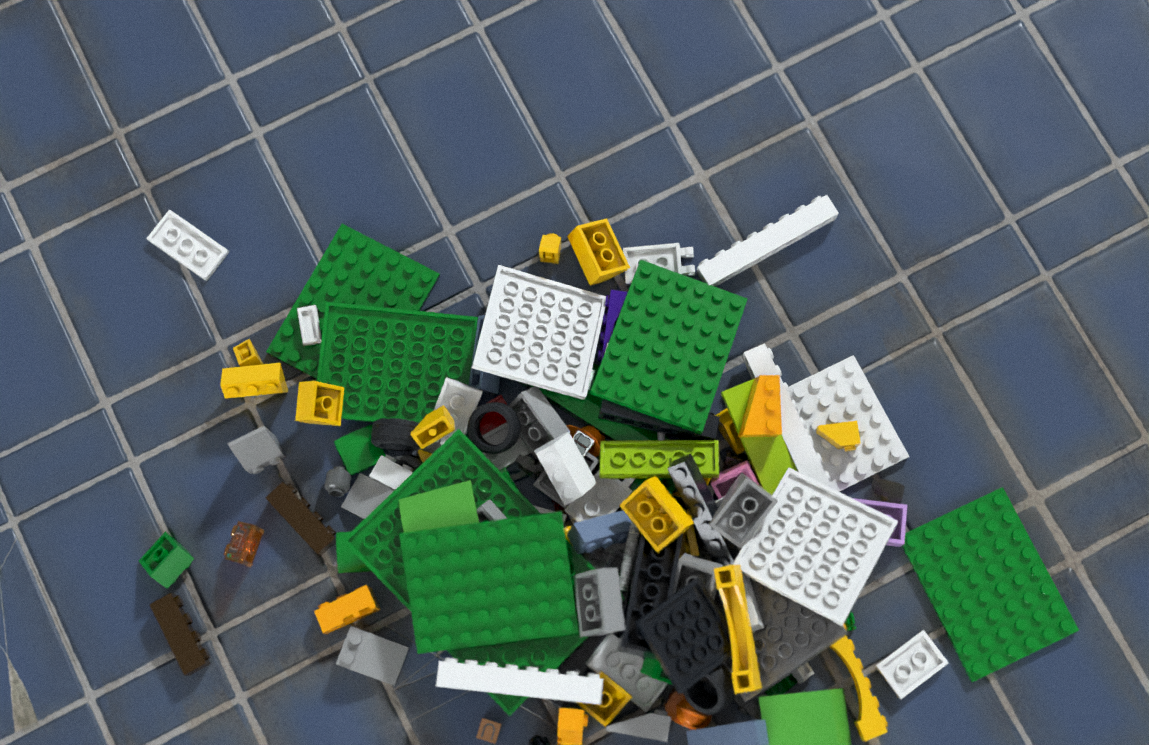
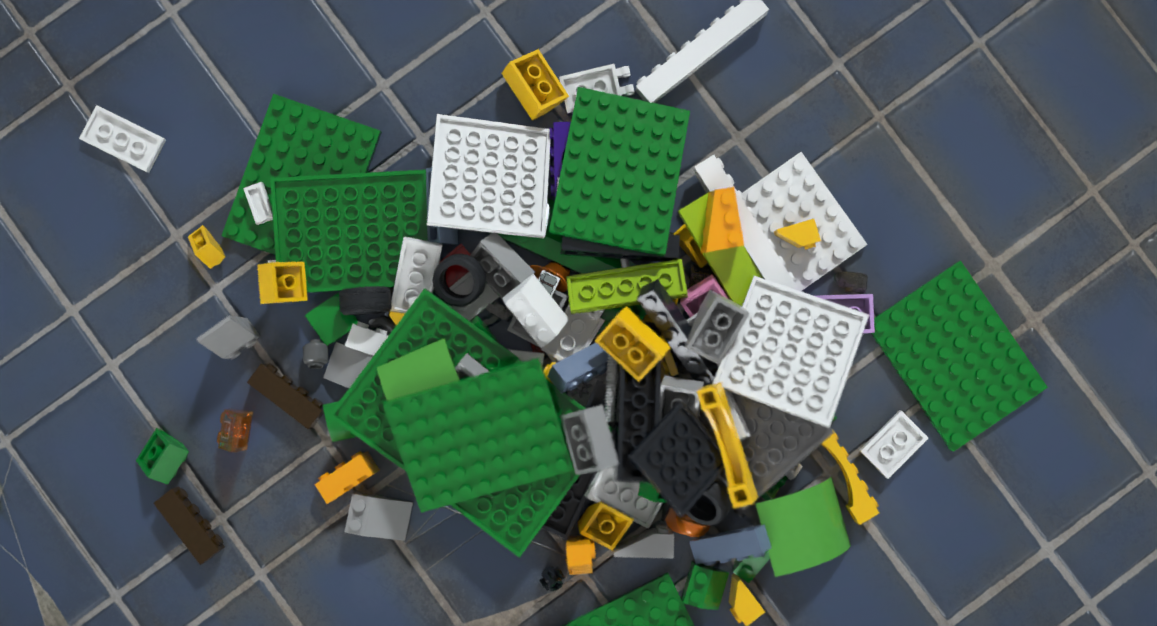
camera: 15 degrees left, 10 degrees up
(253, 380) = (212, 269): yellow slope -> none
(433, 427) = (399, 289): yellow slope -> none
(488, 730) = (502, 568): medium nougat tile -> none
(520, 682) = (524, 526): white brick -> none
(550, 248) = (486, 88): yellow slope -> none

